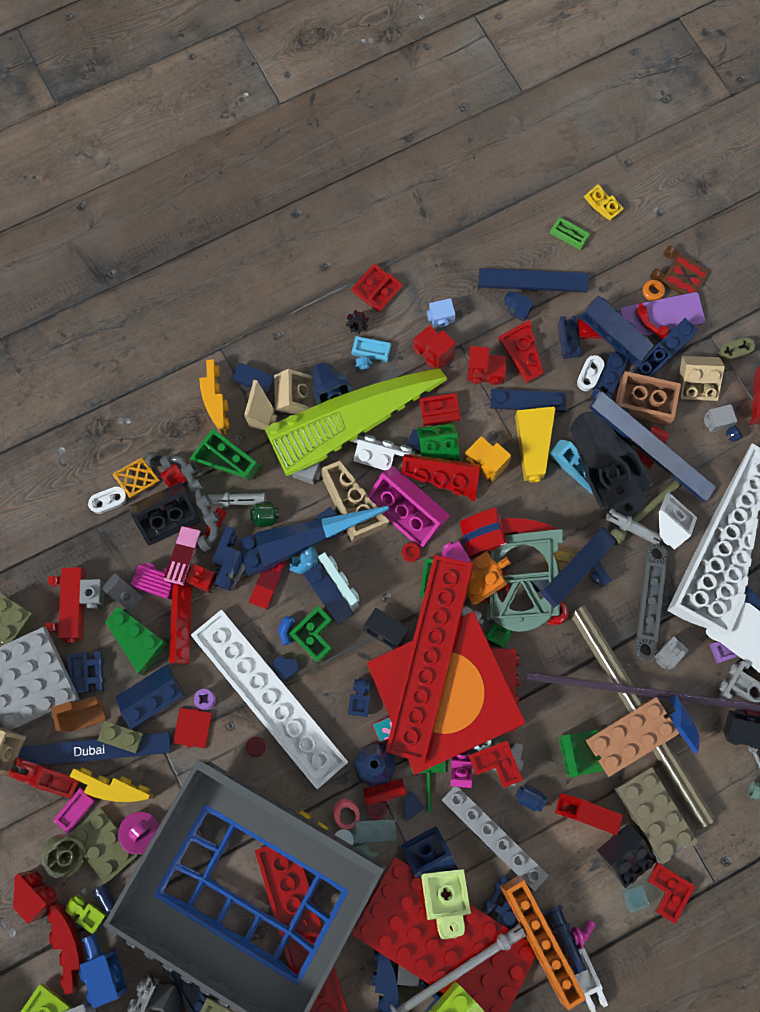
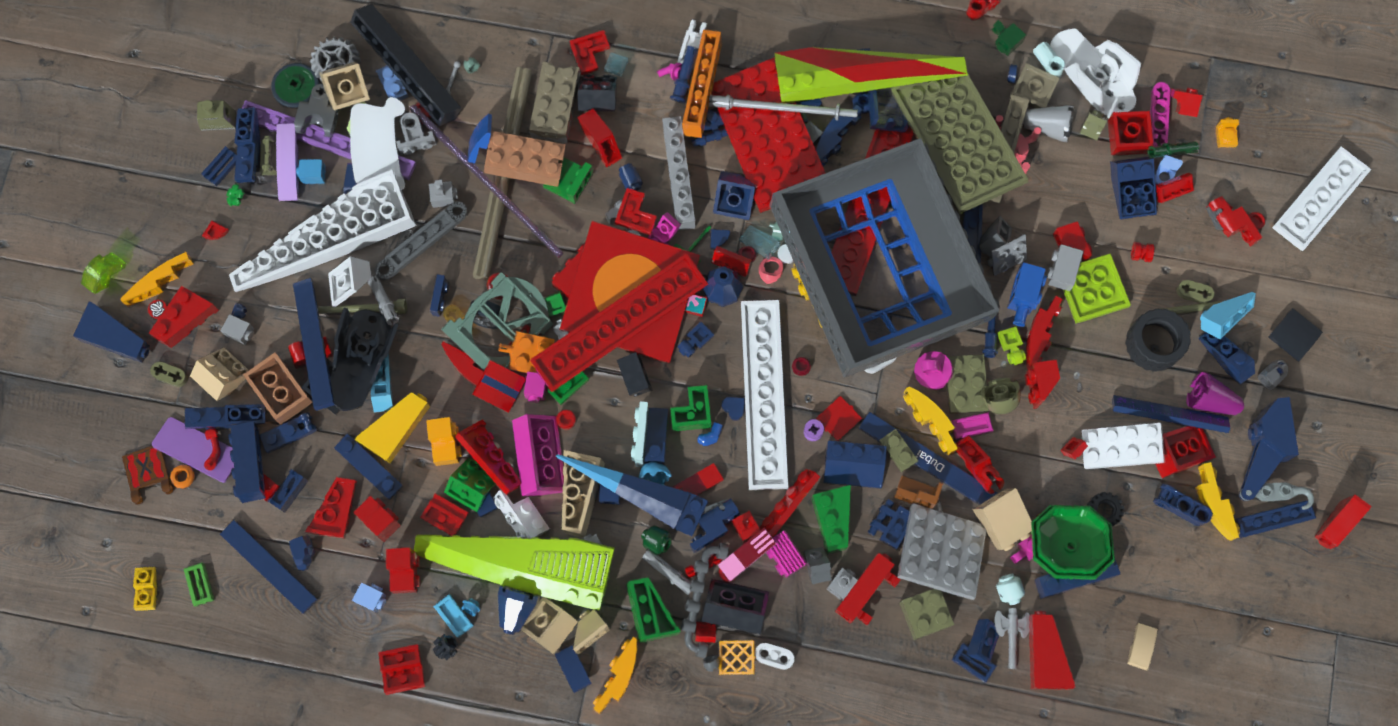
camera: 145 degrees left, 0 degrees up
(446, 912) = (750, 144): yellowish green plate -> none
(578, 567) = (453, 296): dark blue tile -> none
(589, 374) = (299, 447): white plate -> none

